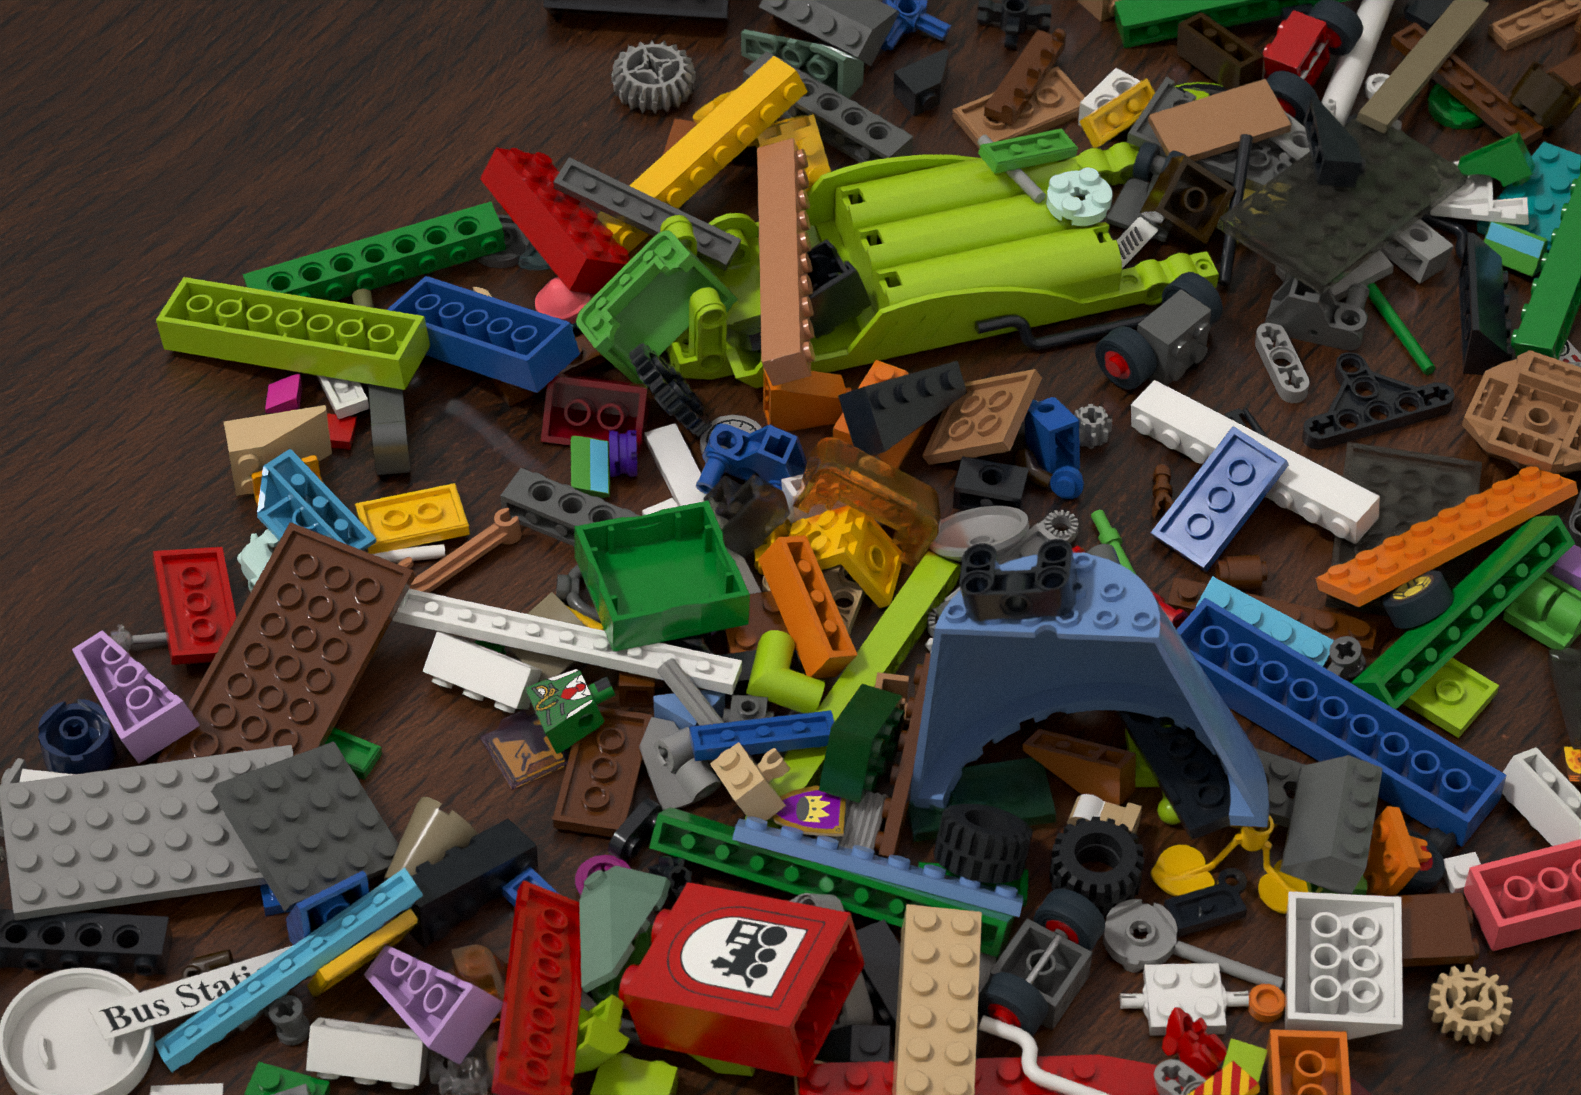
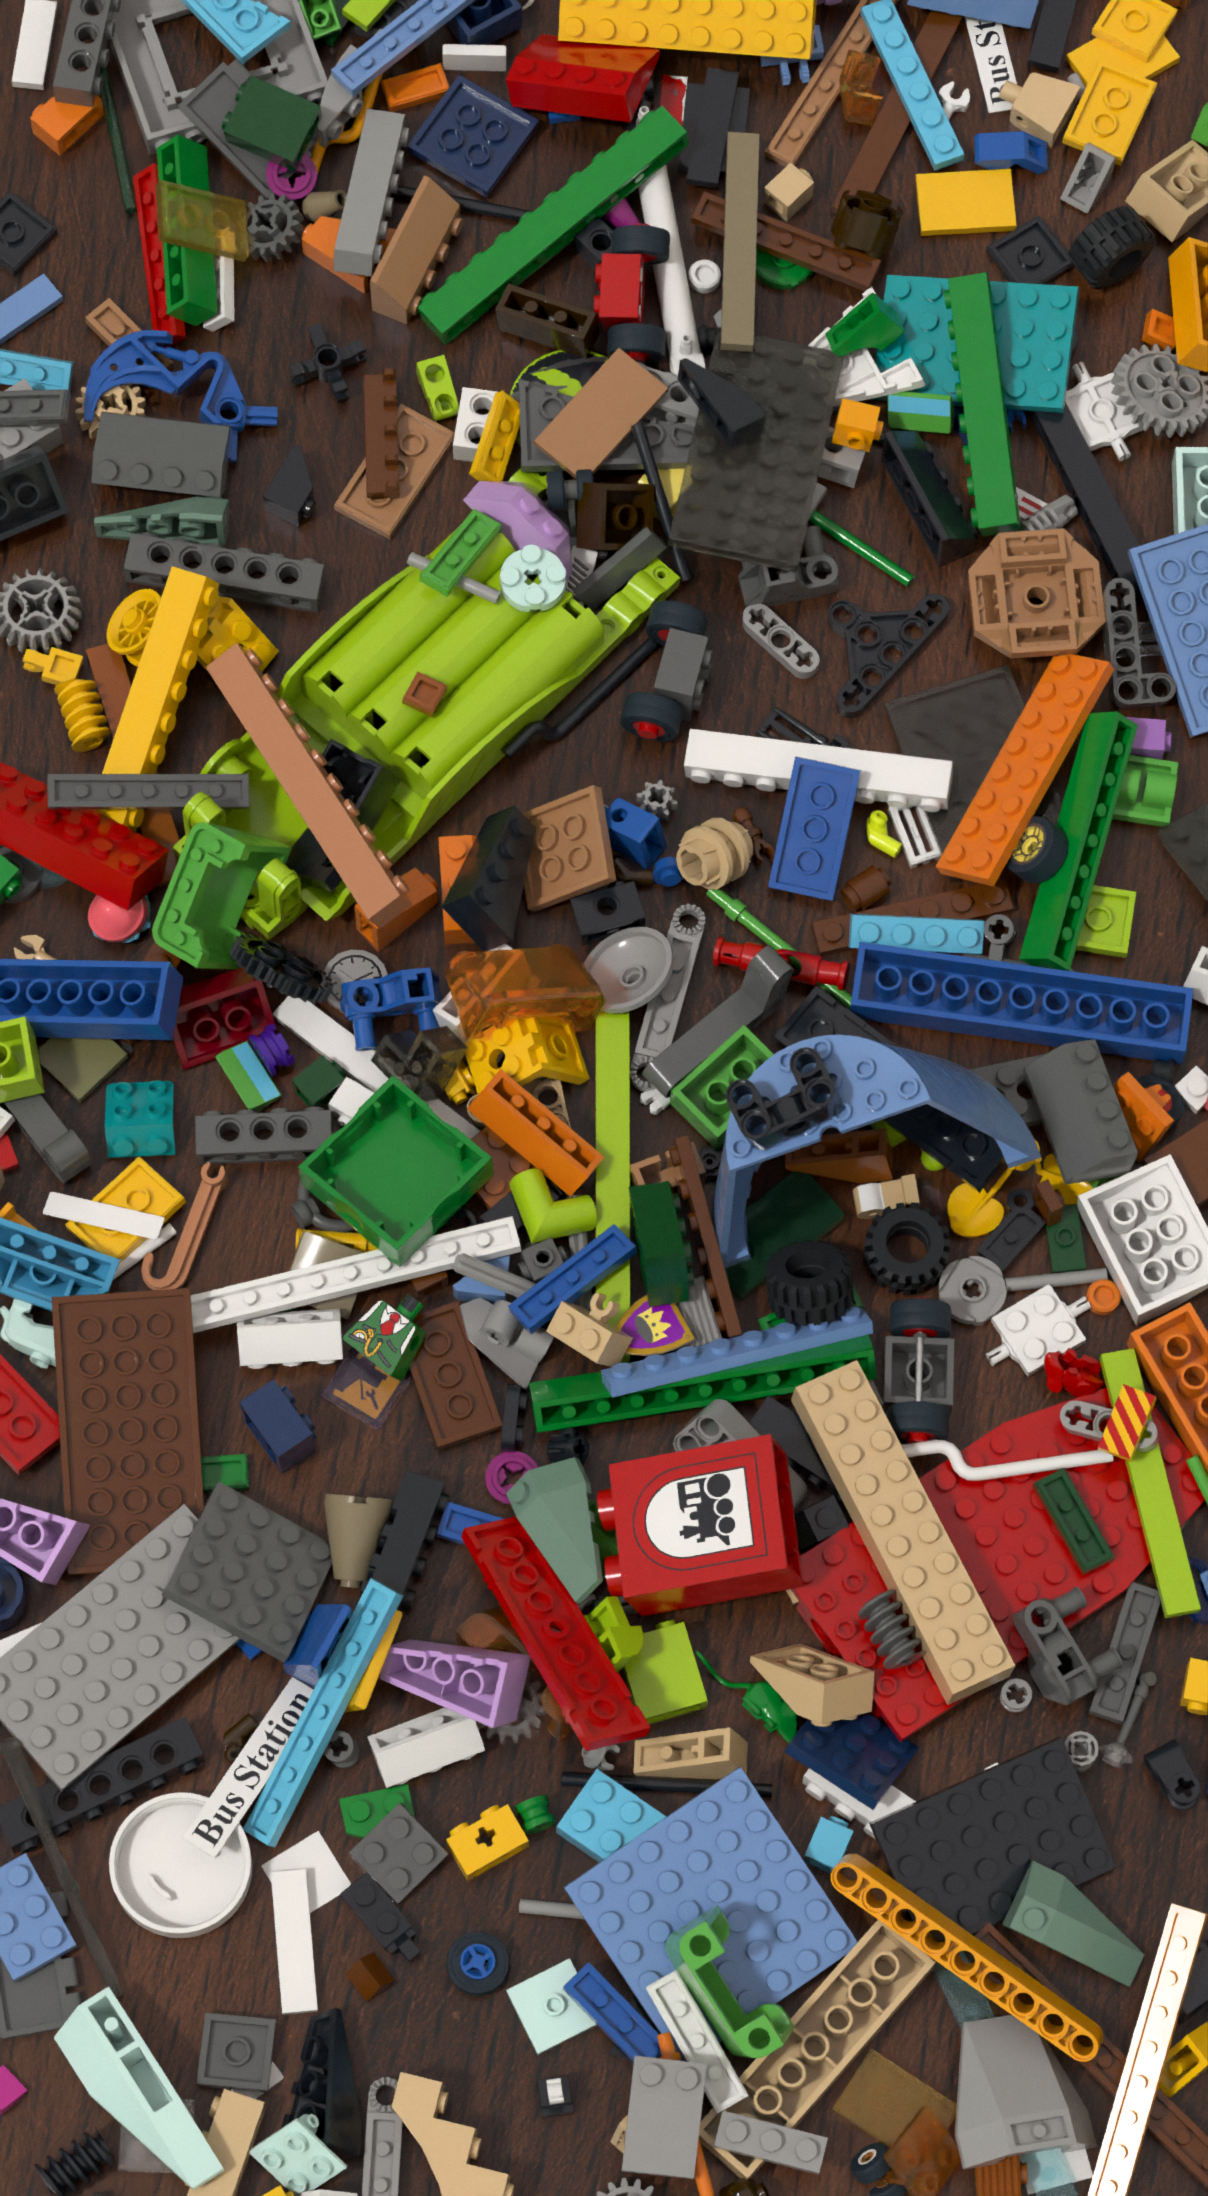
camera: 30 degrees left, 20 degrees up
(391, 509) = (103, 1215): none -> white sticker
(421, 730) = (278, 1426): none -> dark blue brick
(458, 394) = (80, 1063): none -> olive tile
(472, 457) = (140, 1119): none -> teal bracket
(638, 152) = (82, 714): none -> yellow piece
(642, 121) = (56, 667): none -> yellow plate
(645, 492) = (318, 1082): none -> dark green brick
(928, 235) = (424, 694): none -> dark orange tile
(1094, 65) = (437, 387): none -> lime leg
(1107, 156) = (523, 517): none -> lavender wedge
(1115, 478) = (714, 853): none -> tan piece
(1178, 237) = (619, 568): none -> dark grey tile
(1258, 890) = (1049, 1202): none -> reddish brown plate
(1258, 934) = (1066, 1242): none -> dark green plate
(1280, 540) = (878, 834): none -> neon yellow arm
(1312, 574) = (923, 857): none -> white tile
(1446, 223) = (857, 425): none -> light orange brick
(1492, 56) = (789, 191): none -> tan brick

